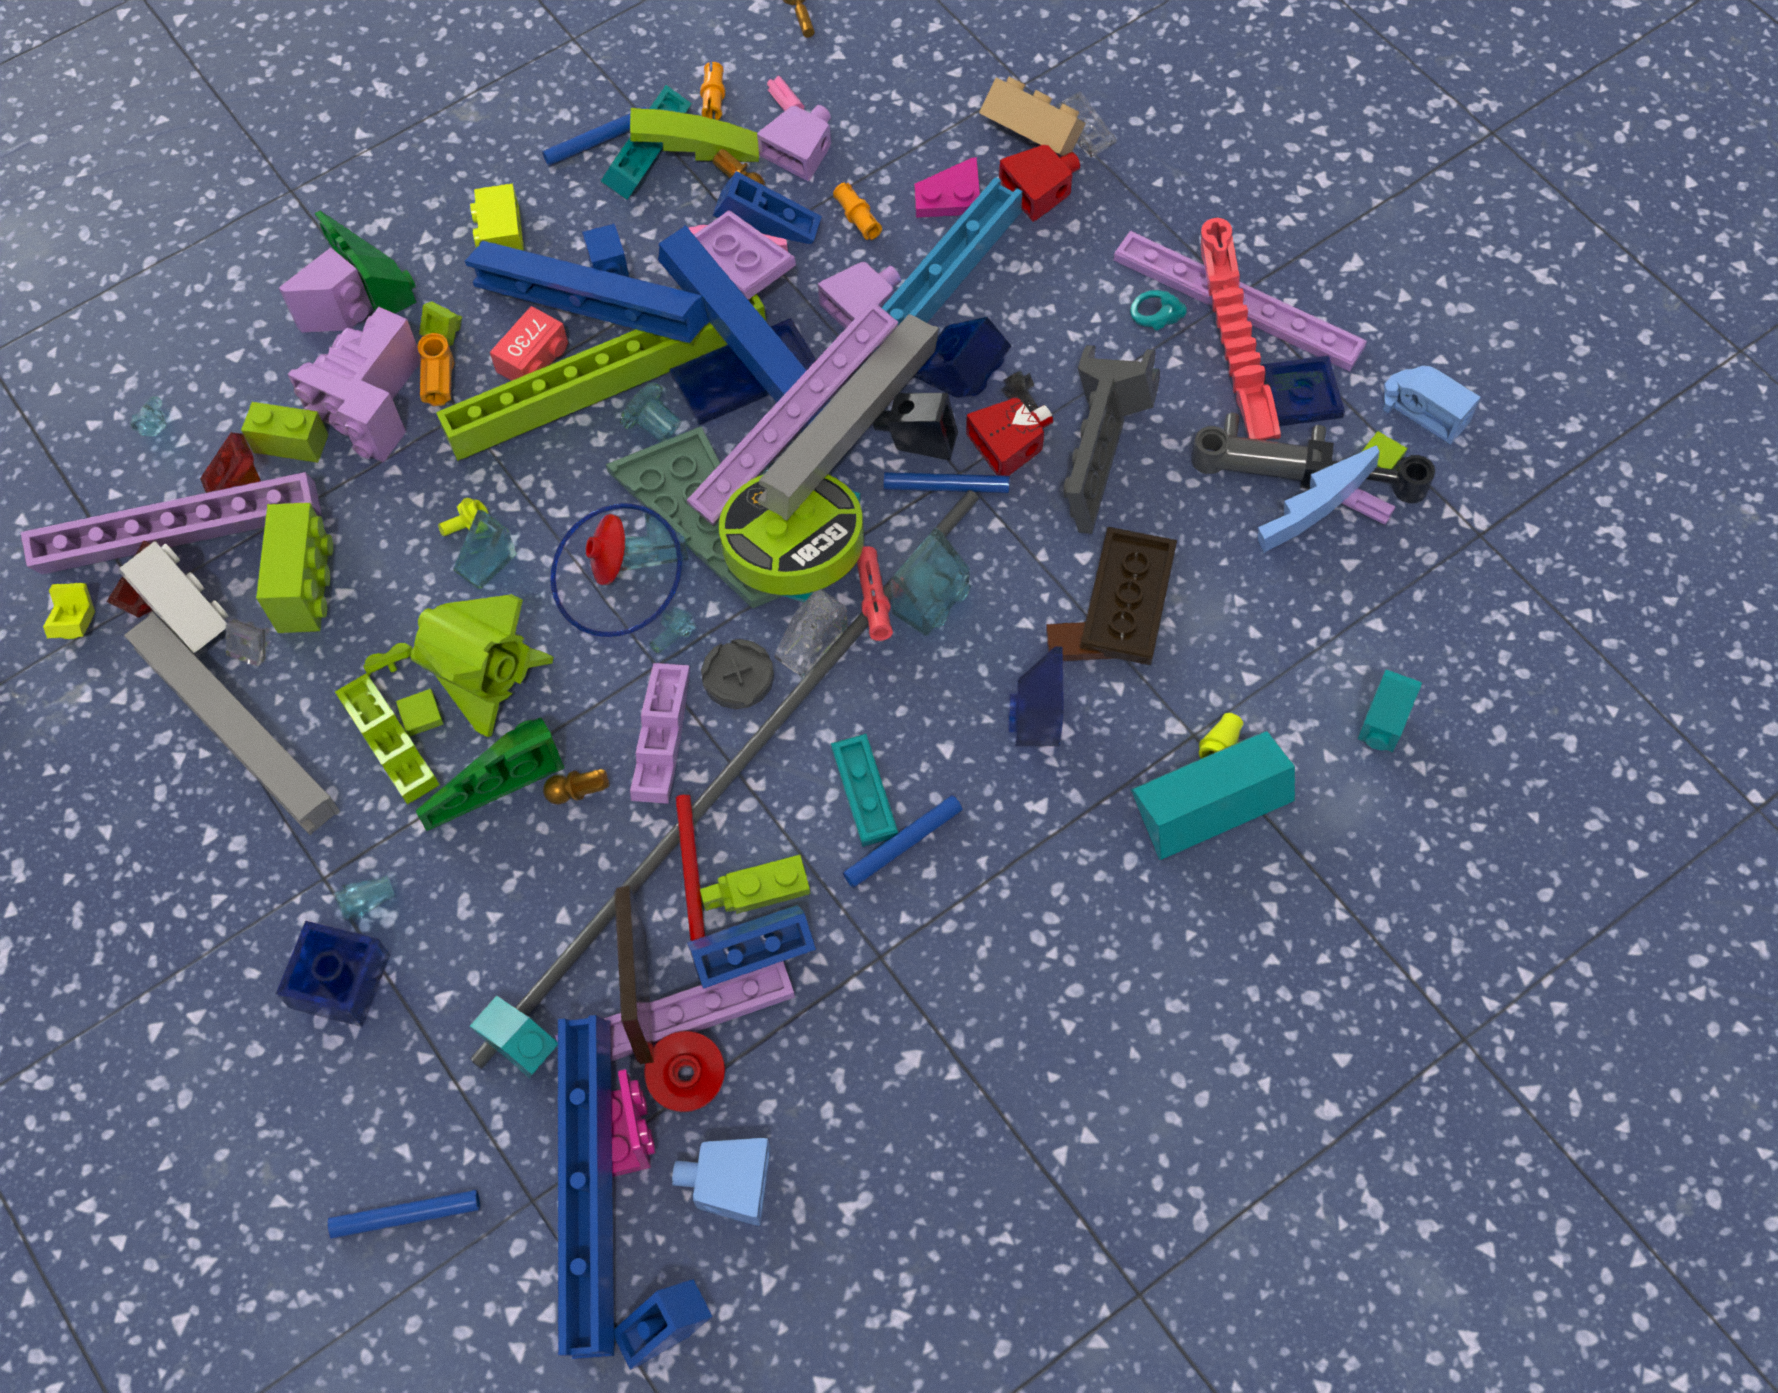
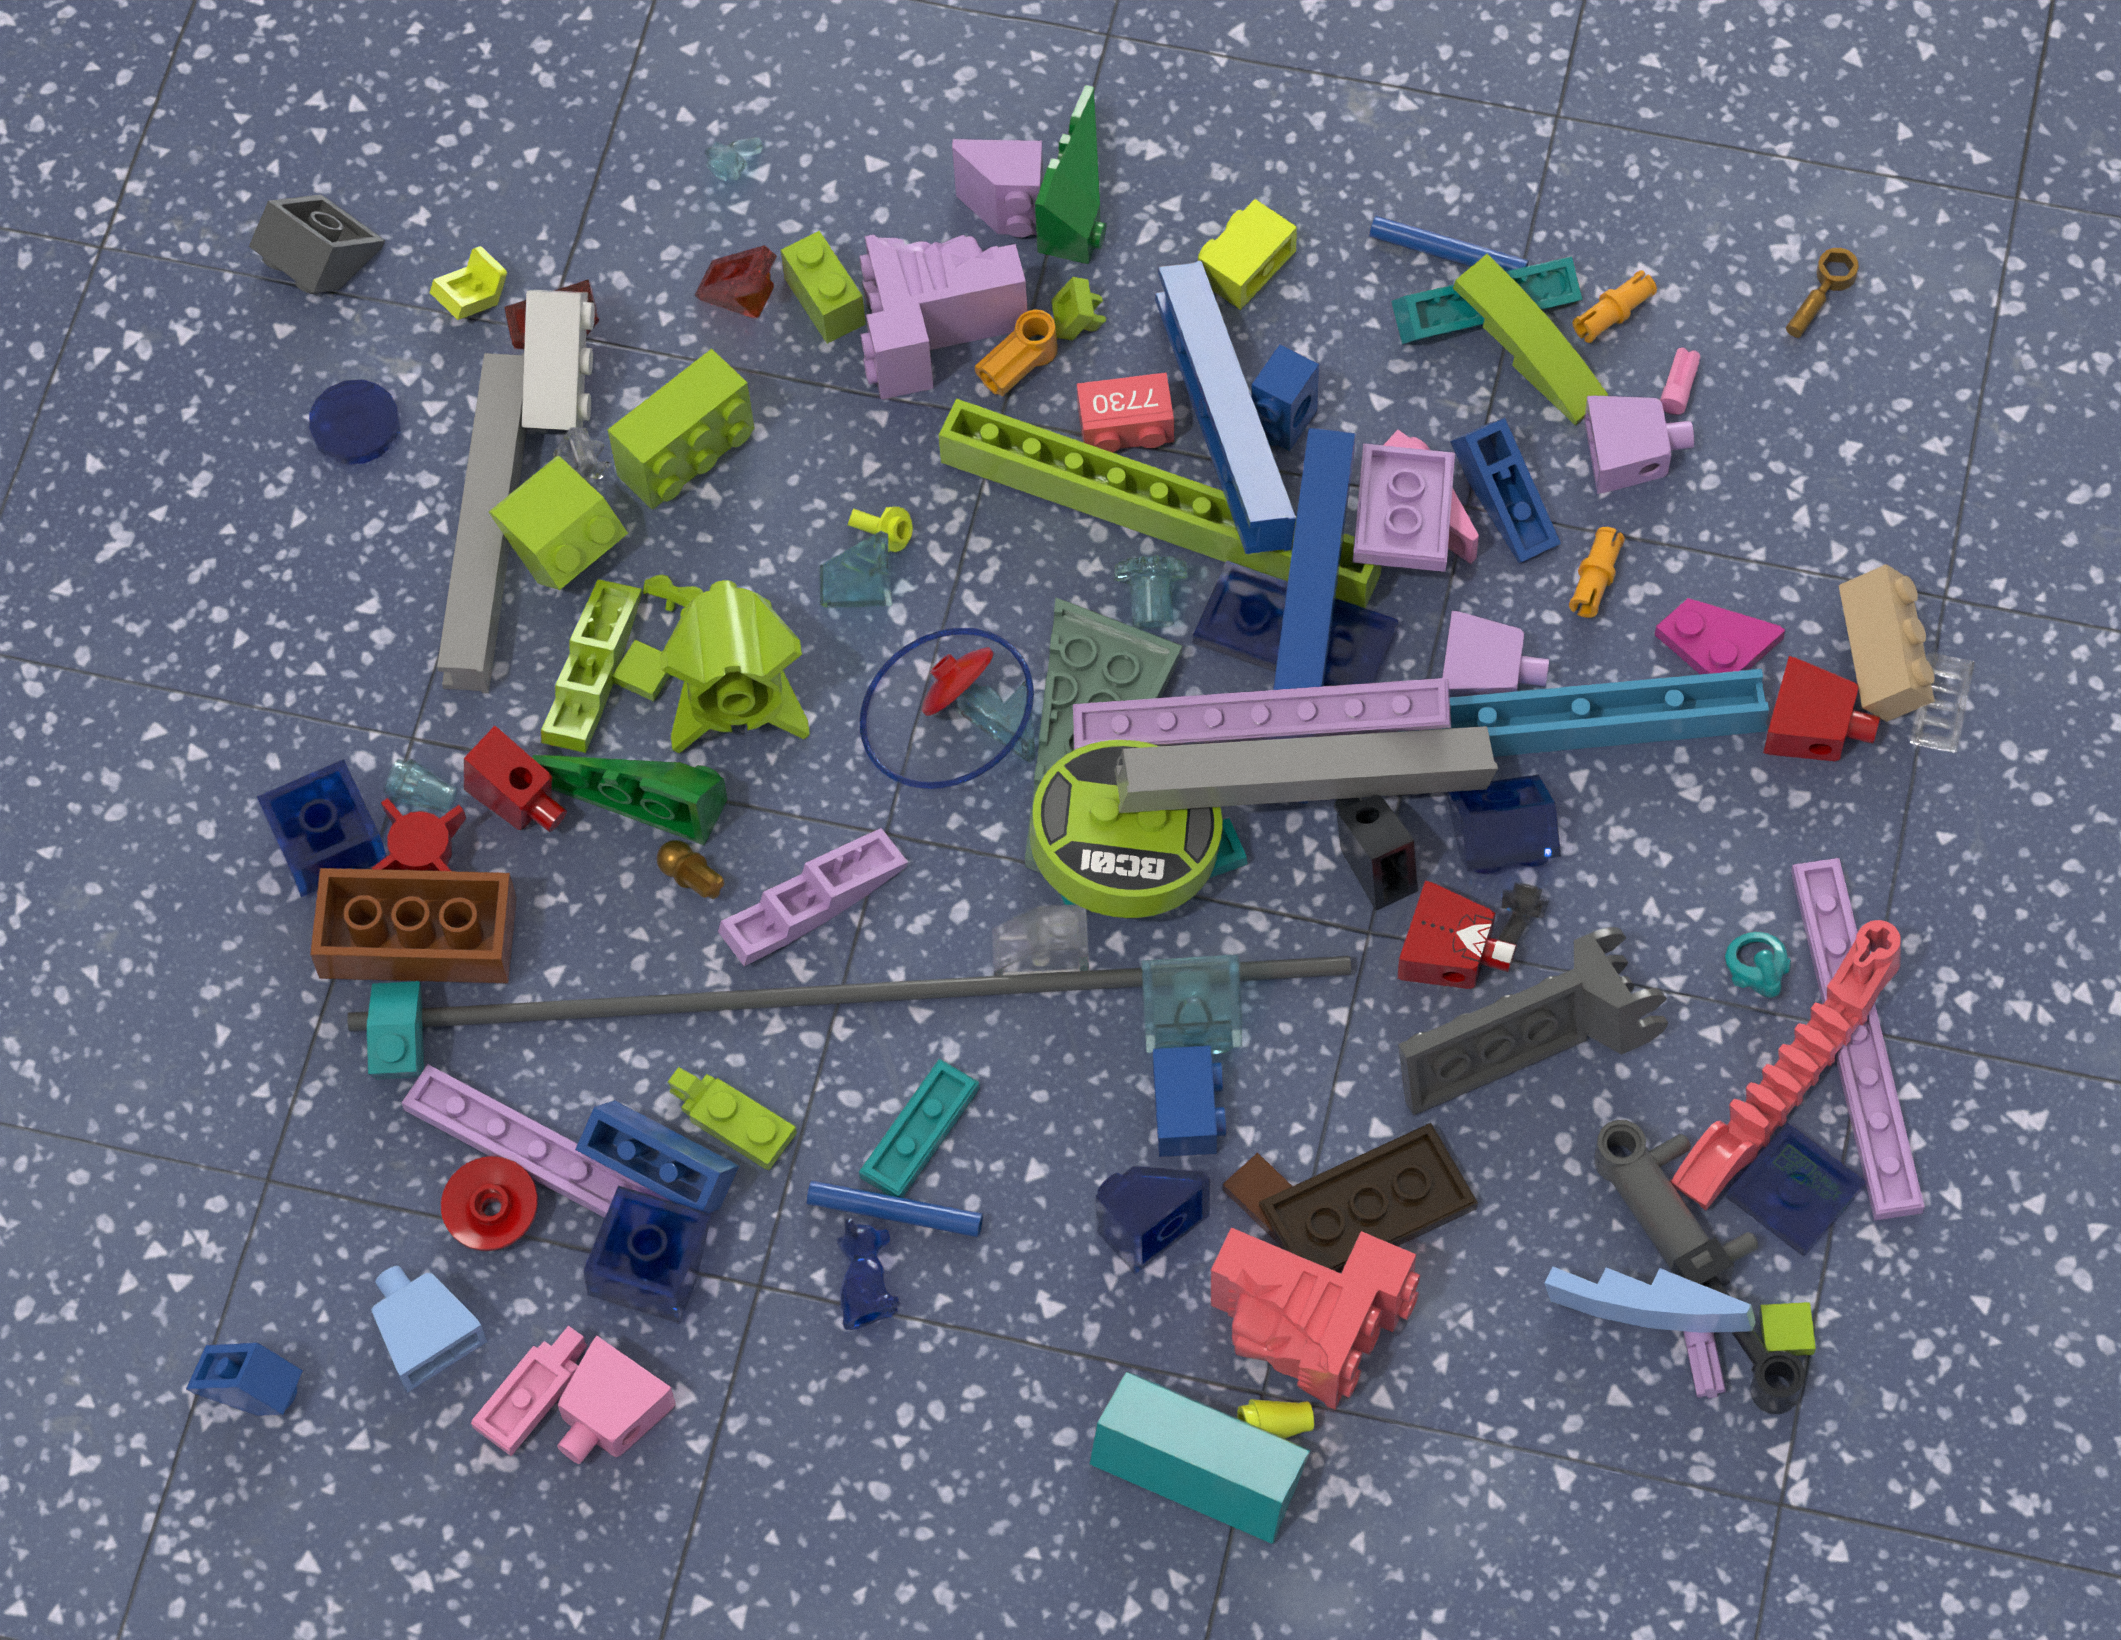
camera: 50 degrees right, 0 degrees up
(80, 747) = (354, 421): none -> clear blue tile
(166, 522) = (634, 284): lavender brick -> none
(280, 680) = (557, 524): none -> lime slope
(403, 1214) = (165, 1083): blue piece -> none
(404, 924) = (420, 839): none -> red piece
(419, 839) = (511, 782): none -> red torso
(455, 970) = (413, 925): none -> dark orange brick
(585, 1189) = (308, 1206): blue tile -> none
(630, 1134) = (391, 1196): dark pink bracket -> none
(633, 975) = (531, 1077): dark brown tile -> none
(677, 623) = (944, 815): clear light blue plate -> none
(690, 867) = (695, 1039): red bar -> none
(729, 165) = (1535, 442): pearl gold axle -> none
(737, 674) = (941, 913): dark grey tile -> none
(810, 1000) = (647, 1254): none -> clear blue slope
(833, 1147) = (529, 1391): none -> bright pink hinge
(878, 621) = (1124, 973): coral pin -> none
(884, 1102) = (610, 1403): none -> bright pink torso
(939, 892) = (863, 1287): none -> clear blue animal
(946, 482) = (1340, 928): blue piece -> none
(982, 635) = (1186, 1102): none -> blue brick
(1179, 669) = (1309, 1316): none -> coral brick
(1389, 711) = (1443, 1557): teal slope -> none
(1431, 401) = (1898, 1328): light blue piece -> none

